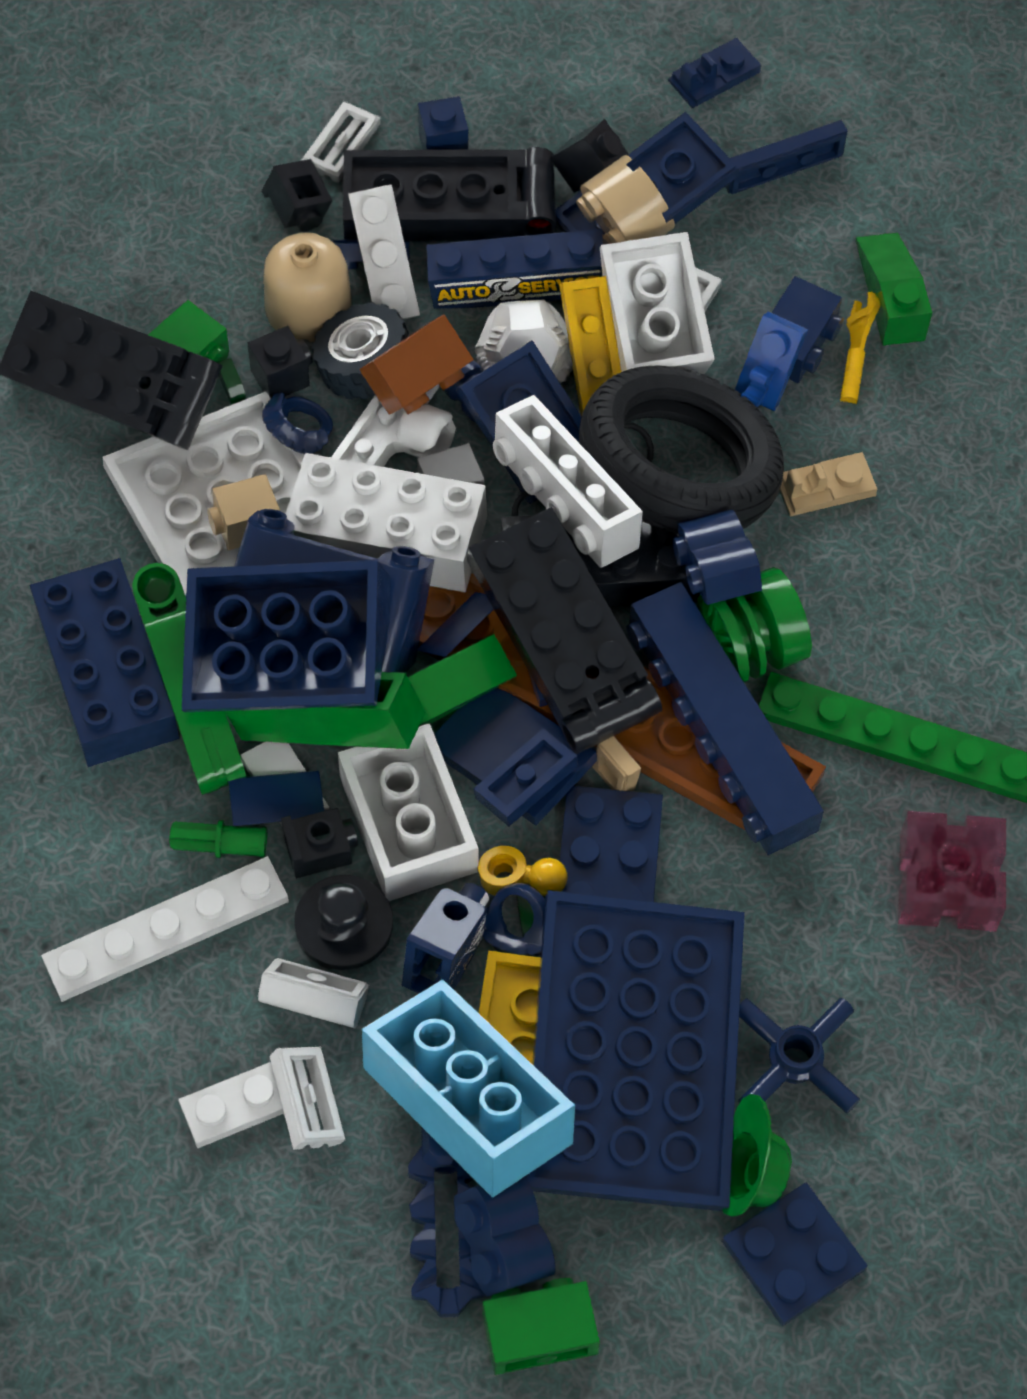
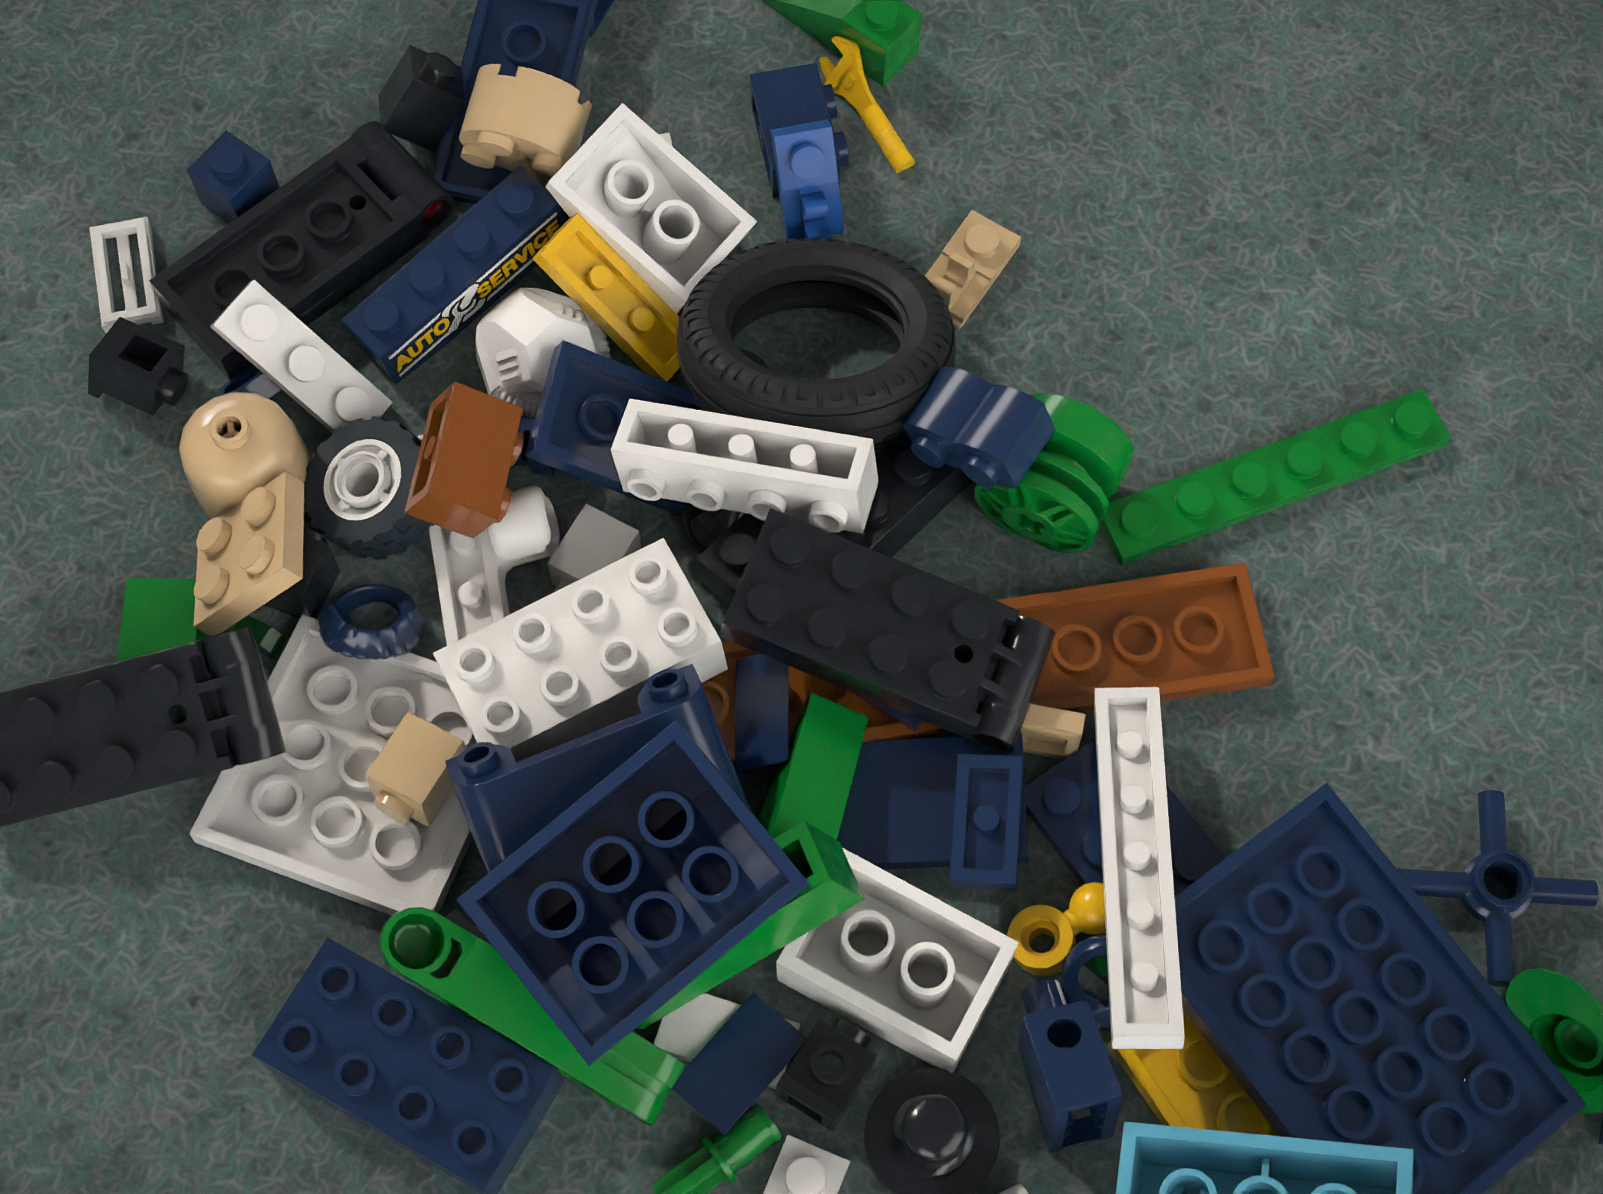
camera: 40 degrees left, 5 degrees up
(258, 329) = (249, 554): none -> tan plate
(580, 858) = (1137, 871): none -> white plate
(724, 719) = (1119, 594): dark blue brick -> none
(974, 853) = (1463, 573): clear pink brick -> none

